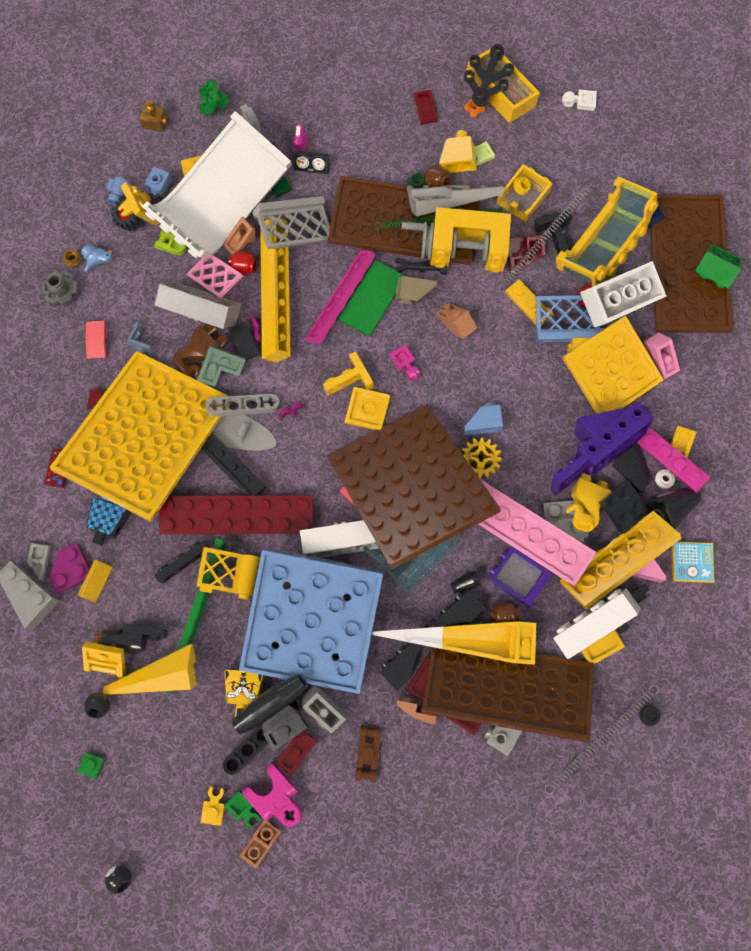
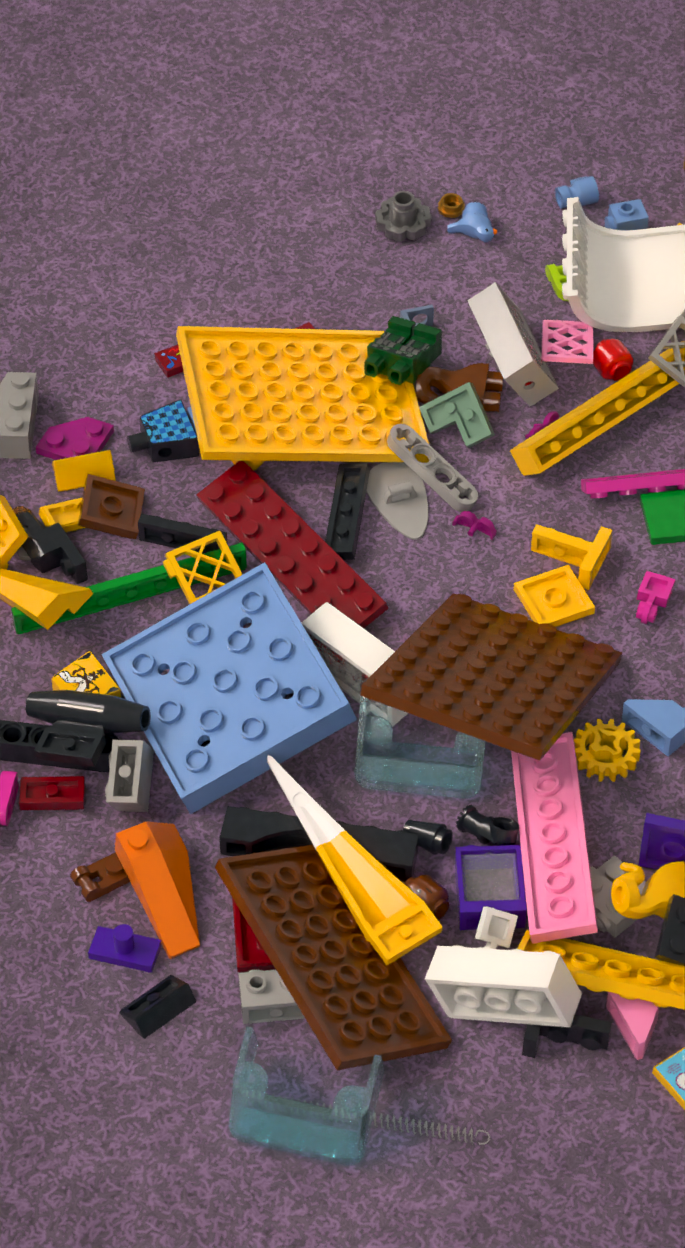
camera: 45 degrees right, 25 degrees down
(38, 559) = (61, 407): light grey tile -> none
(95, 339) = (371, 289): coral slope -> none
(120, 608) = (65, 513): none -> yellow plate
(130, 210) = (549, 214): yellow plate -> none
(132, 584) = (111, 506): none -> reddish brown tile
(158, 362) = (403, 350): none -> dark green hips
(240, 236) = (642, 332): nougat slope -> none
(244, 341) = (514, 423): black slope -> none
(397, 737) = (162, 880): none -> orange wedge
(410, 708) = (212, 885): nougat slope -> none
(420, 783) = (124, 948): none -> dark purple tile
(465, 791) = (158, 1005): none -> black slope
(486, 552) = (487, 828): none -> black connector
(551, 596) = (496, 927): none -> white plate
(574, 794) = (296, 1126): none -> clear light blue windscreen
(603, 647) = (484, 1042): yellow tile -> none
(649, 715) = (441, 1151): black plate -> none

